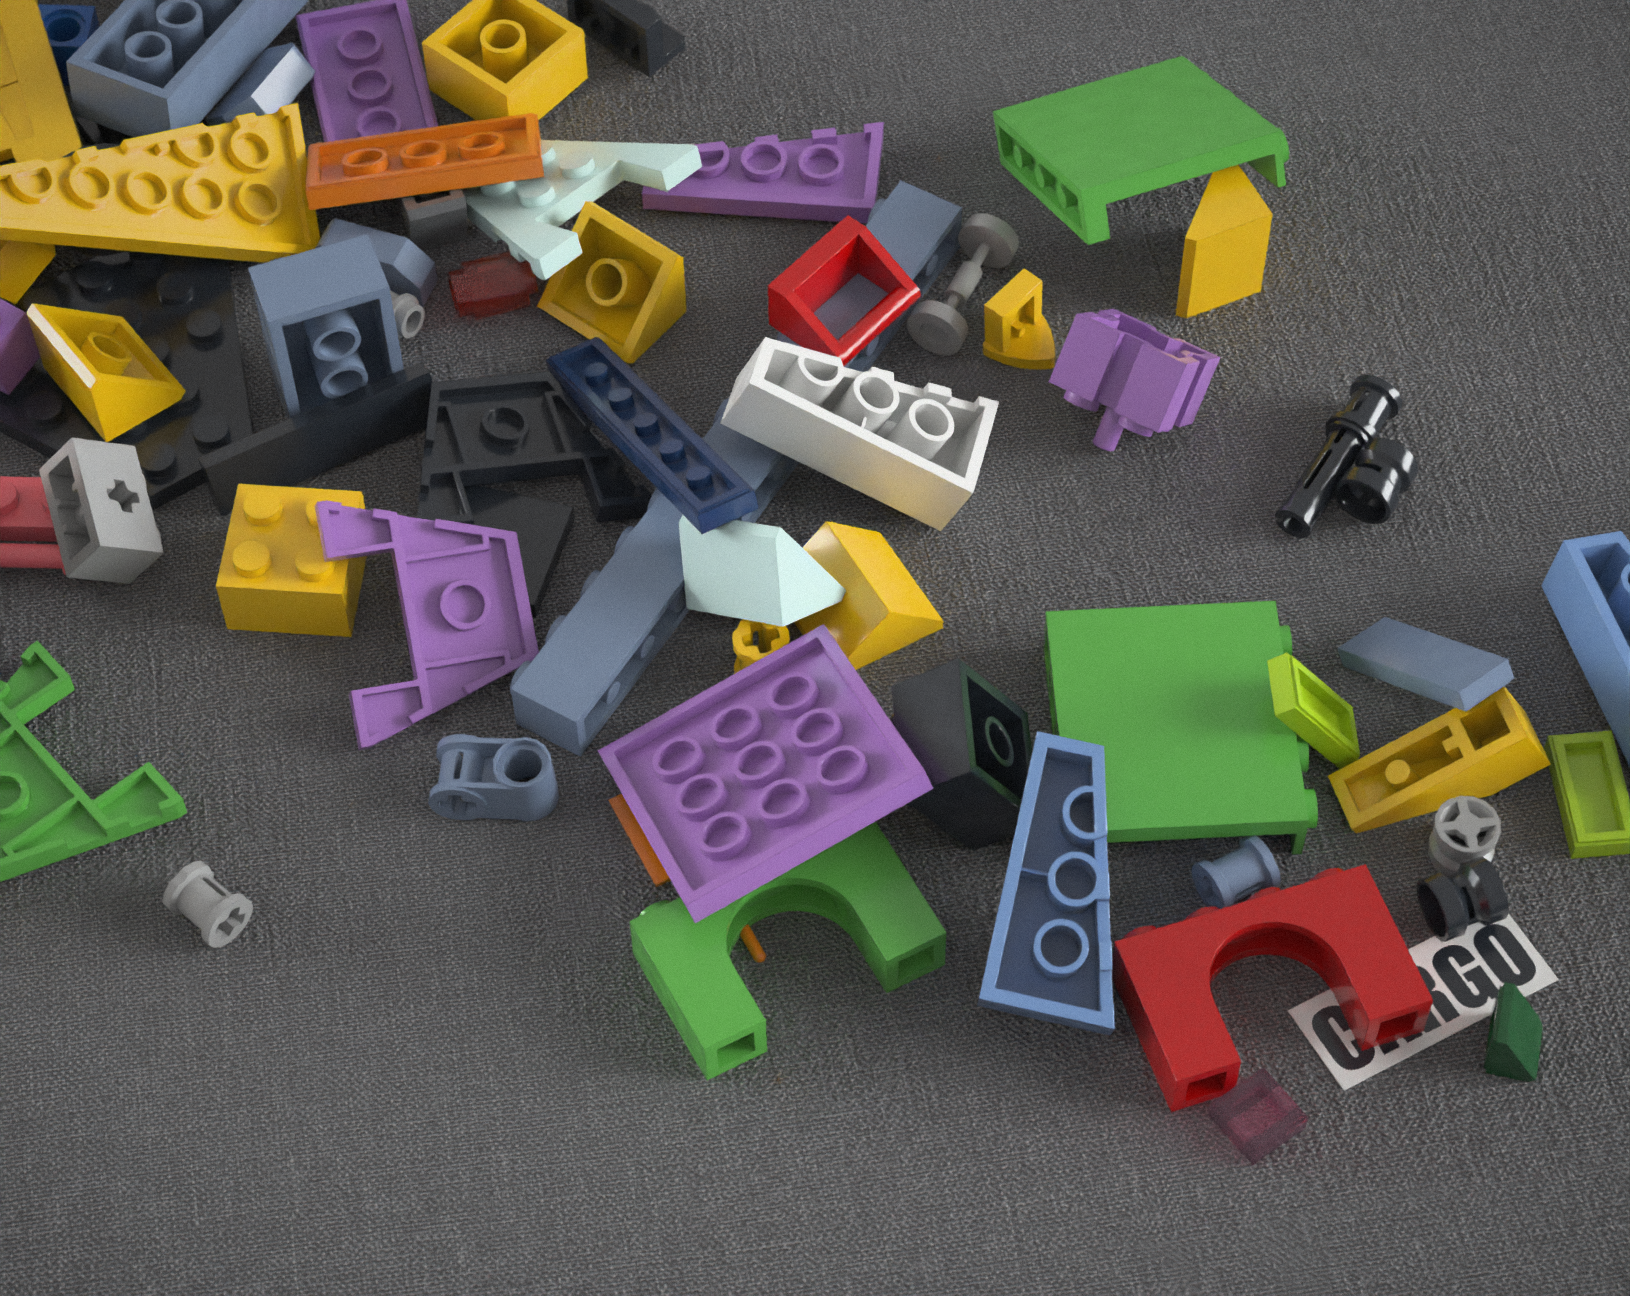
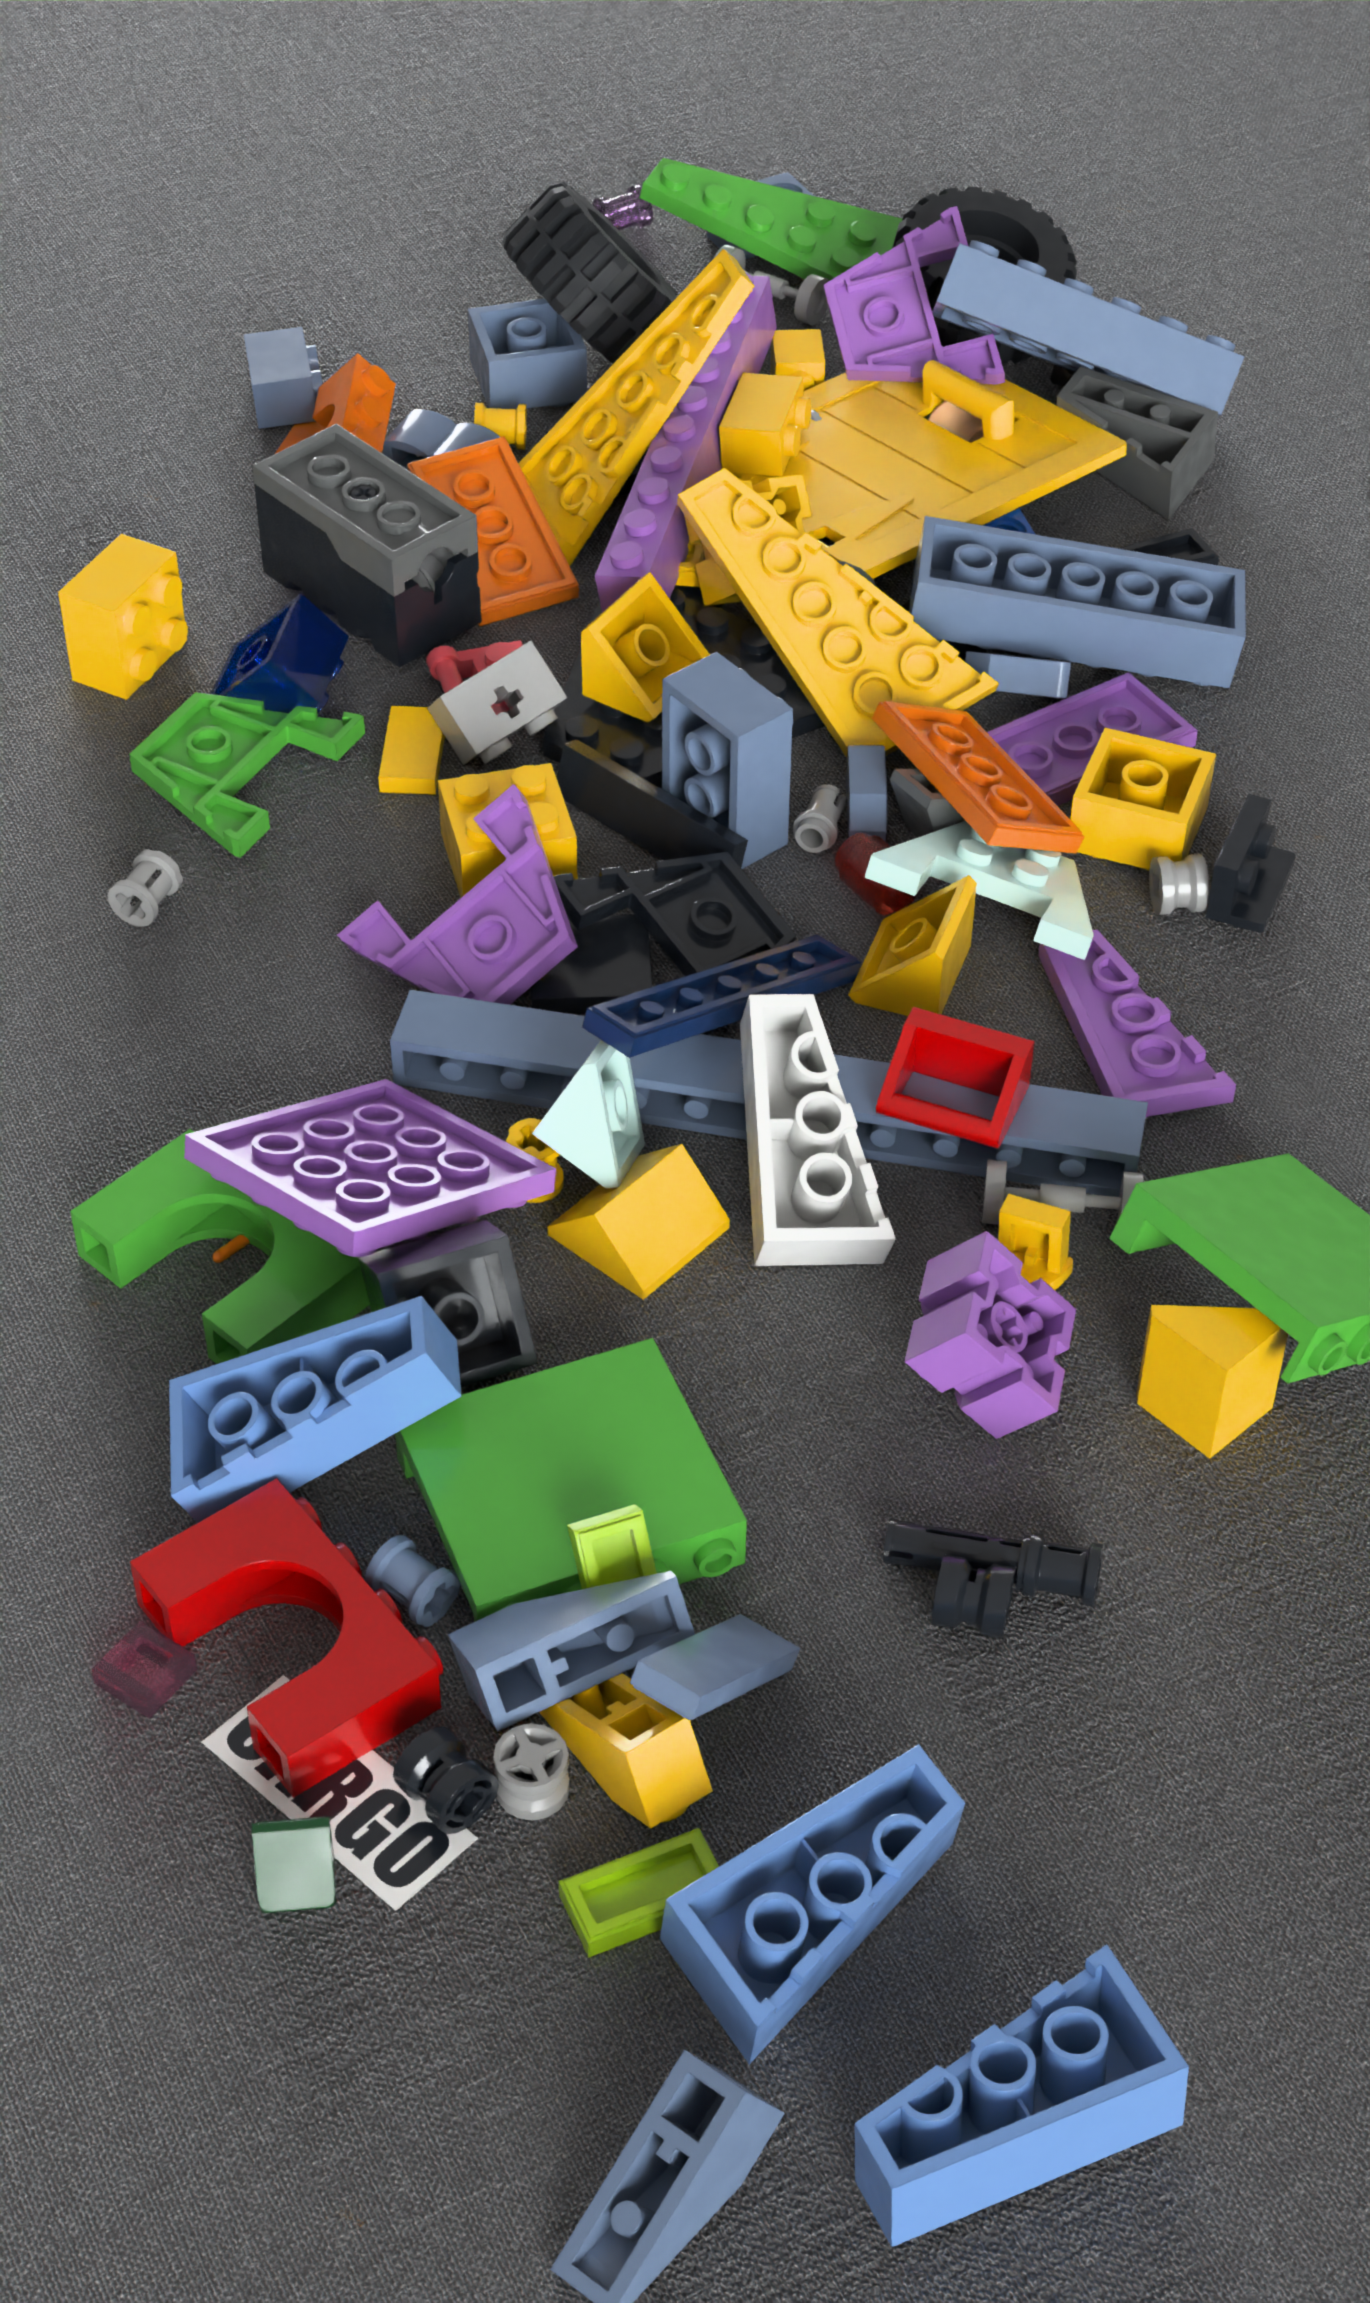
camera: 70 degrees right, 10 degrees down
(94, 617) = (411, 752): none -> yellow tile
(489, 779) = (331, 1025): sand blue piece -> none
(612, 76) = (1179, 884): none -> light grey wheel
(1366, 776) = (566, 1644): none -> sand blue slope

